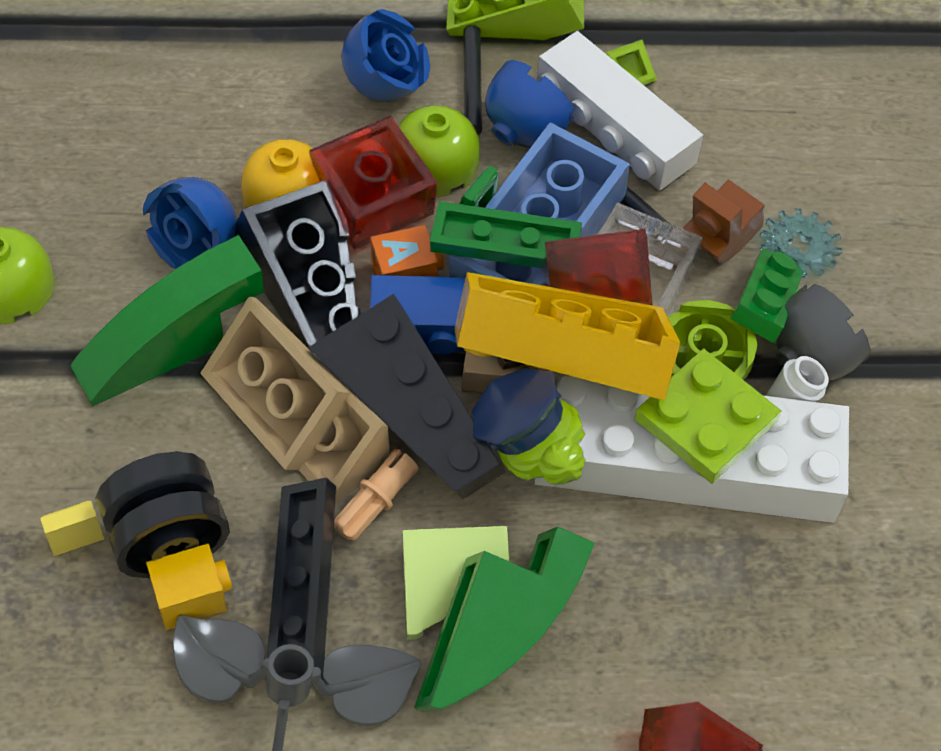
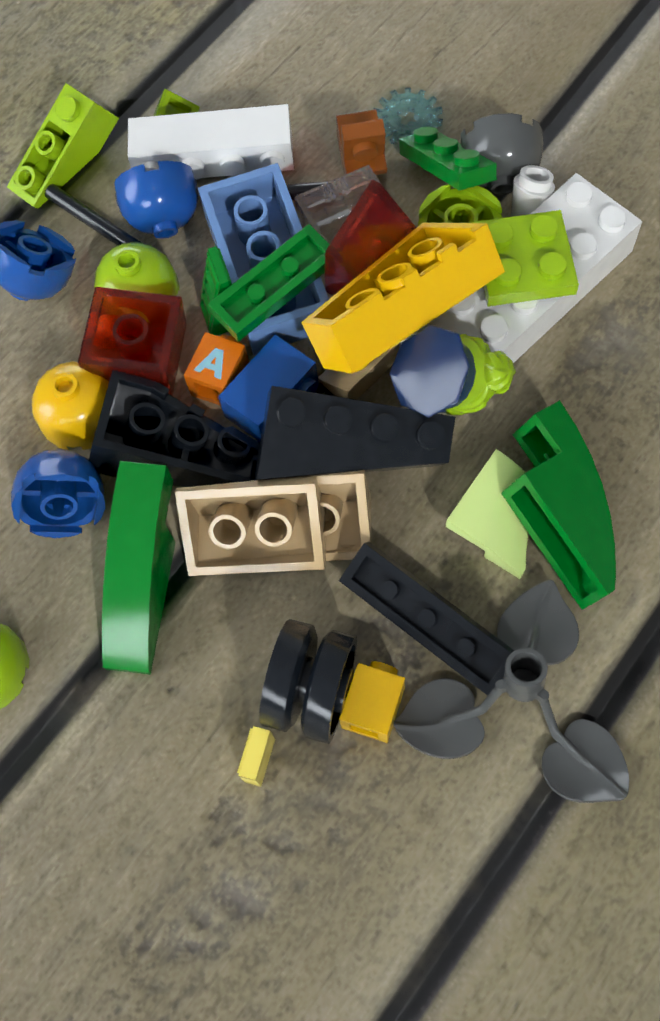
camera: 40 degrees left, 10 degrees up
(375, 495) = (395, 521): light nougat axle -> none

